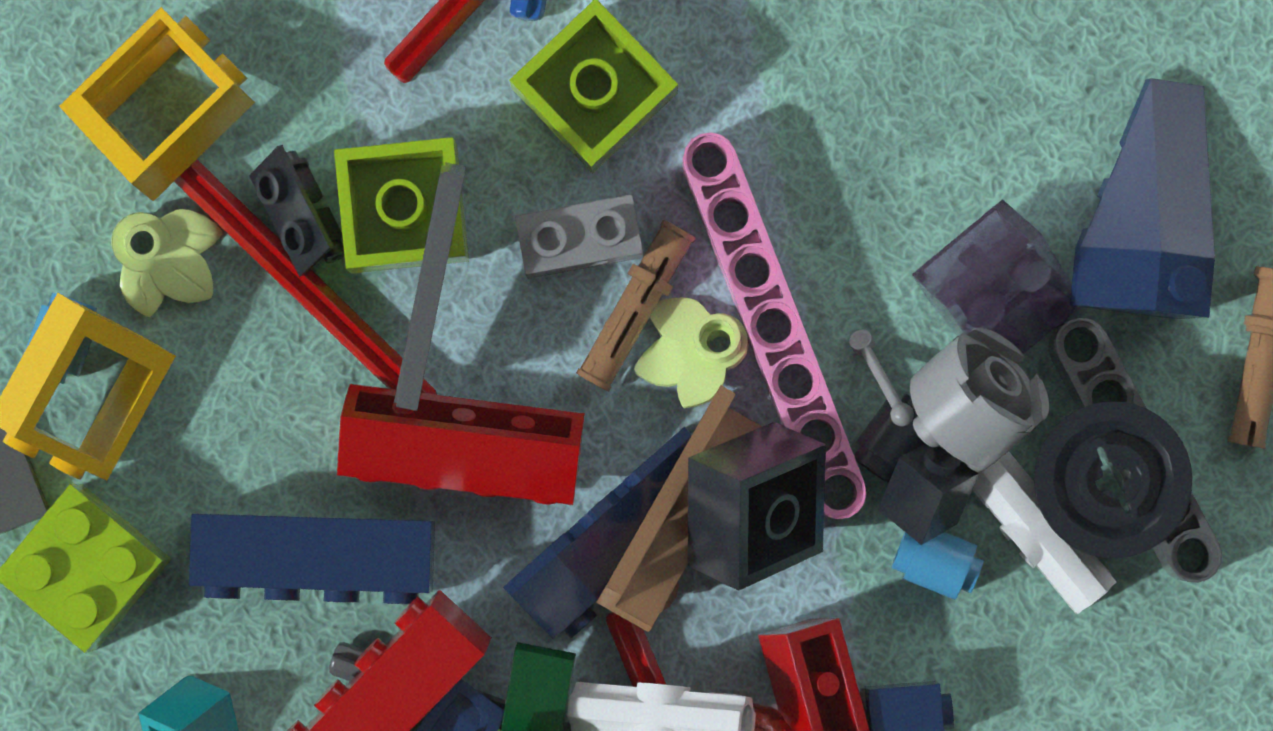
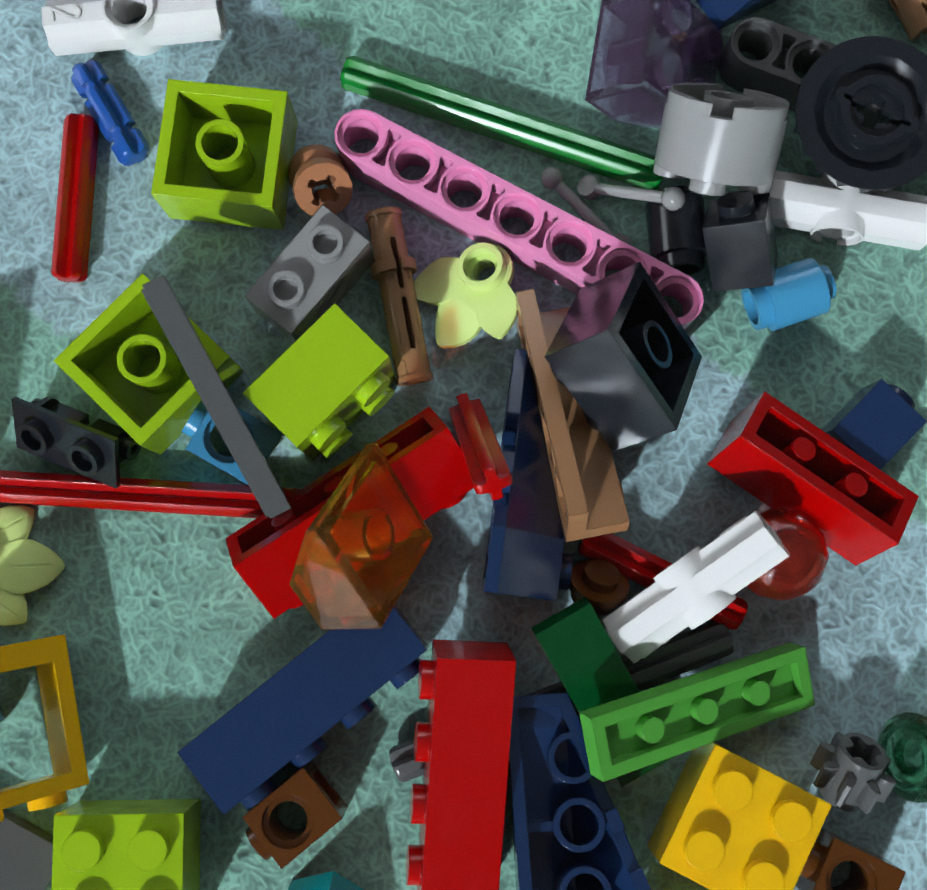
camera: 45 degrees left, 5 degrees down
(260, 629) = (315, 795): none -> reddish brown brick
(398, 286) = (200, 427): none -> dark azure brick
(443, 483) = (360, 548): none -> clear orange slope
(516, 335) = (324, 384): none -> lime brick
(592, 477) = (480, 447): none -> red axle
(596, 655) = (600, 584): none -> reddish brown plate
(650, 164) = (319, 166): none -> nougat wheel
(833, 227) = (500, 122): none -> green axle
(839, 310) = (553, 179): none -> light grey hinge

